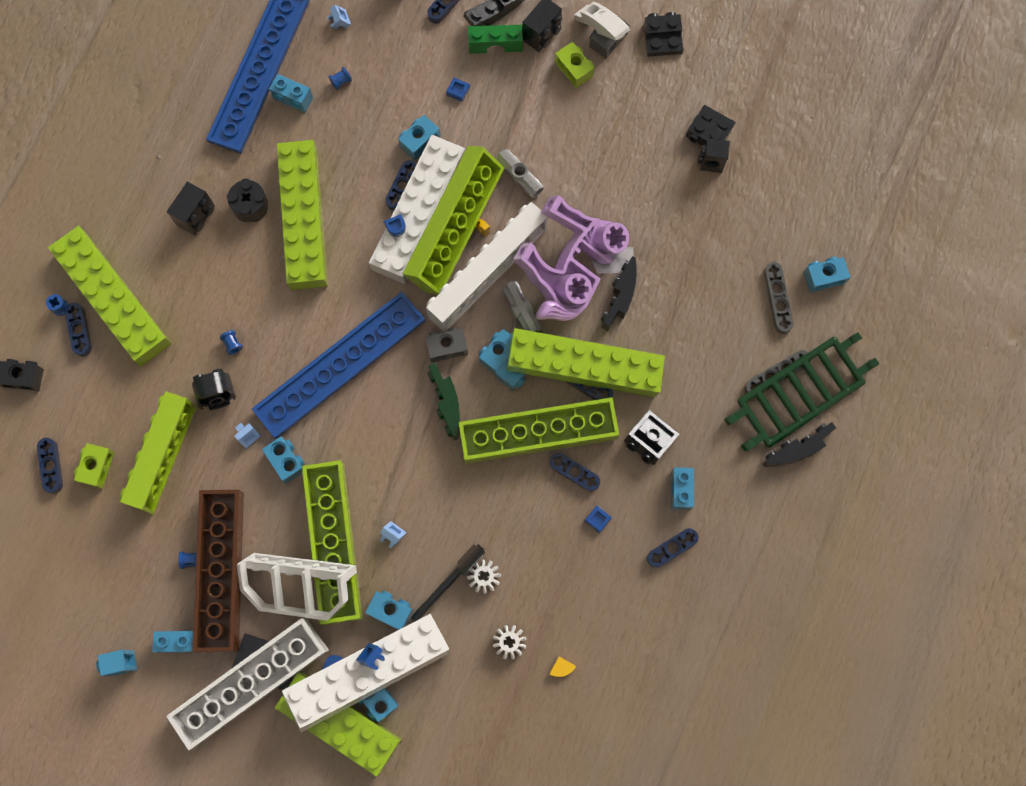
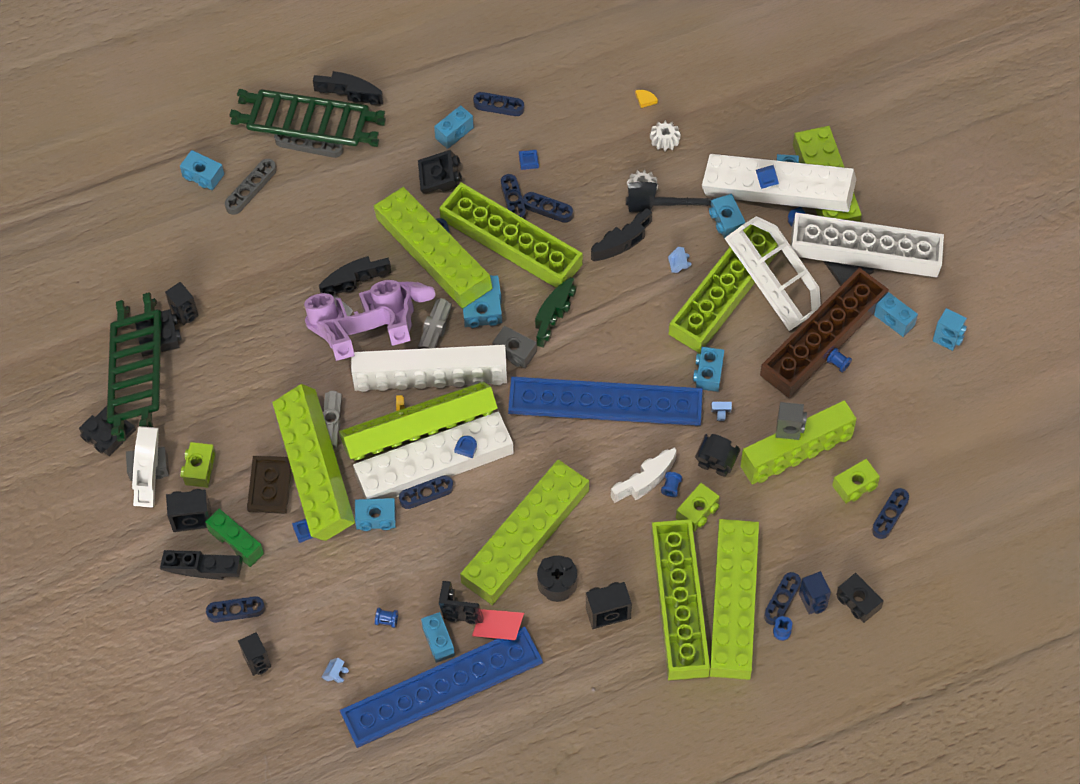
camera: 135 degrees left, 15 degrees down
(49, 344) = (814, 593): none -> dark blue brick
(146, 259) = (680, 600): none -> lime brick
(158, 441) = (790, 421): none -> dark grey brick
(201, 350) = (702, 497): none -> lime brick
(251, 337) = (651, 475): none -> white slope
(259, 136) = (499, 624): none -> coral sticker
(293, 114) = (455, 610): none -> black bracket
(454, 507) = (619, 241): none -> black slope
(495, 127) = (313, 462): none -> lime brick
(513, 95) = (269, 484): none -> dark brown plate
(555, 488) = (562, 207): none -> dark blue beam
(658, 38) = (124, 320): none -> dark green bar

